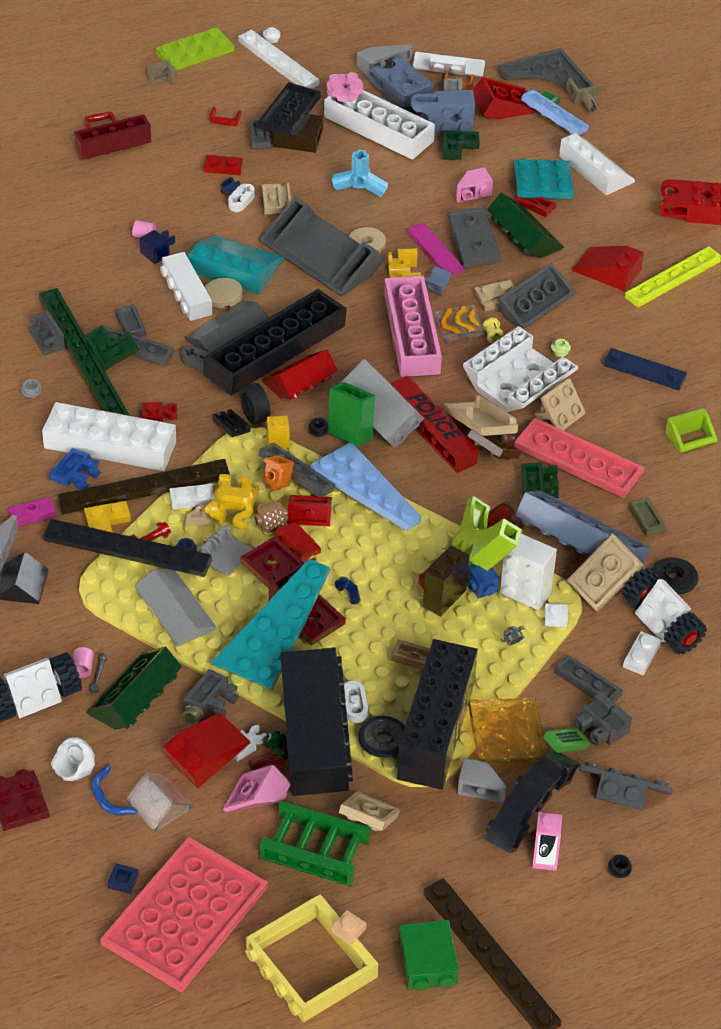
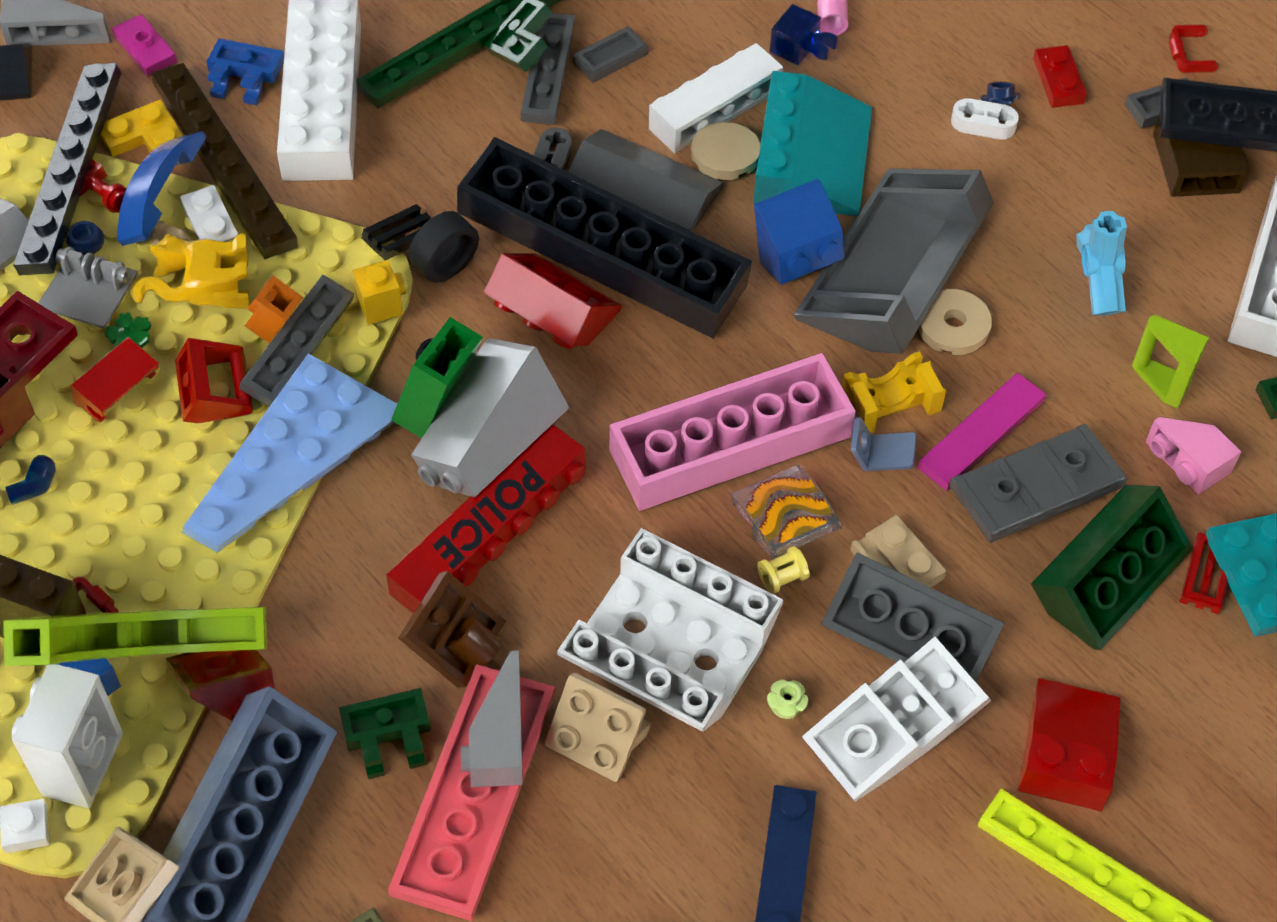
camera: 75 degrees right, 10 degrees up
(156, 411) = (409, 136): red plate -> none
(163, 509) = (137, 210): none -> blue slope
(257, 539) = (127, 327): none -> green plant
(271, 516) = (170, 326): medium nougat head -> none
(275, 198) = (1004, 163): tan plate -> none
(302, 272) = (798, 232): none -> blue slope
(433, 173) = (1182, 344): none -> lime tile
(482, 417) = (496, 585): tan container -> none
(557, 433) = (495, 733): none -> light grey slope
(582, 314) = (895, 719): none -> white slope

